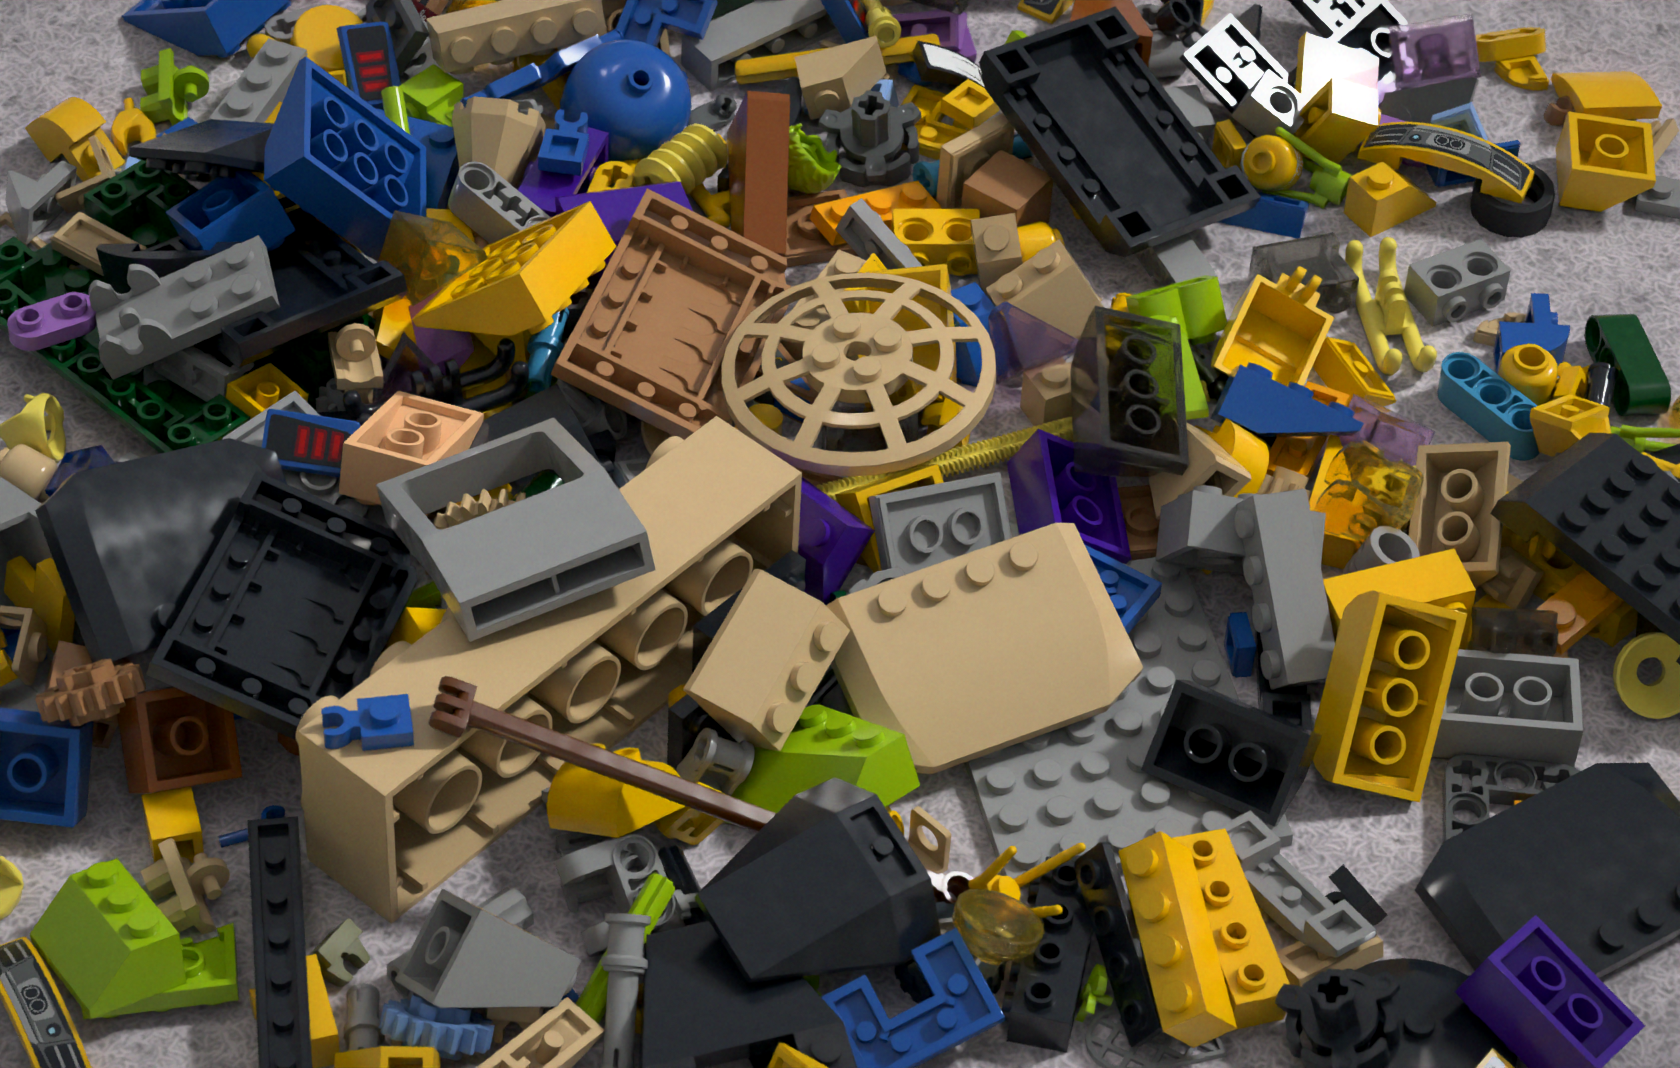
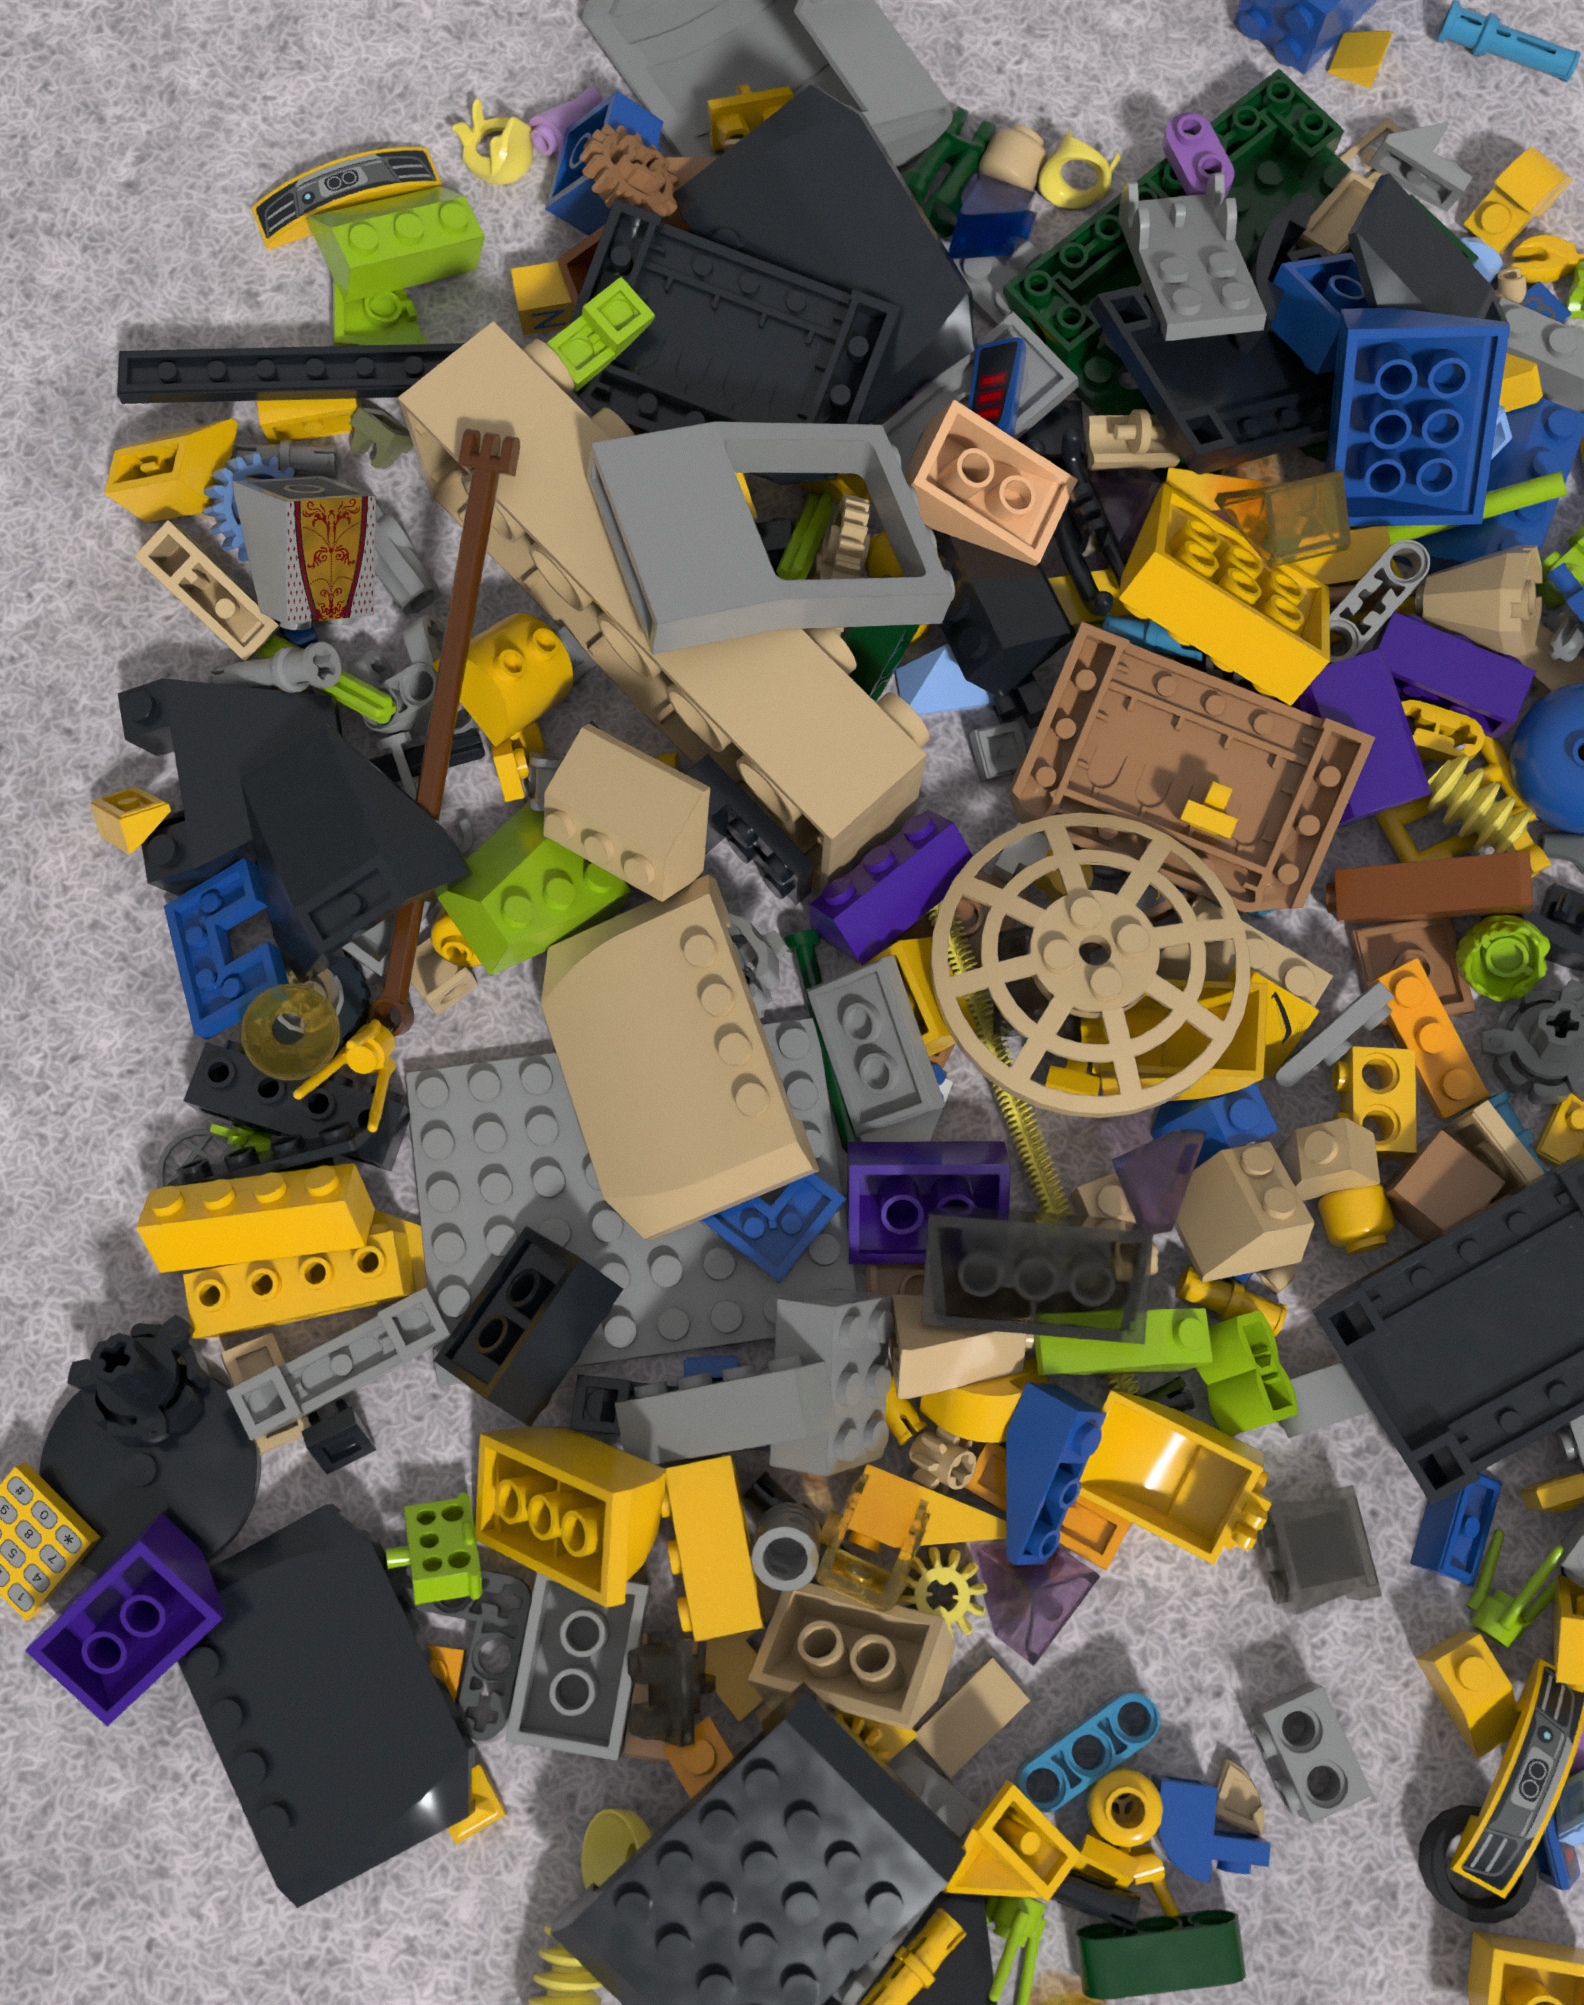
camera: 95 degrees right, 30 degrees up
(72, 198) = (1450, 214): tan bracket -> none
(189, 882) = (472, 307): tan hips -> none
(261, 390) = (1099, 373): yellow piece -> none
(281, 678) = (601, 332): none -> lime slope
(377, 722) = (485, 386): blue plate -> none
(565, 147) = (1469, 665): blue plate -> none
(713, 300) = (1210, 814): none -> yellow tile
(1271, 163) = (1519, 1538): yellow head -> none
(1348, 371) = (1155, 1587): yellow slope -> none
(1388, 311) = (1262, 1651): light yellow piece -> none
(1437, 802) = (440, 1550): none -> lime piece

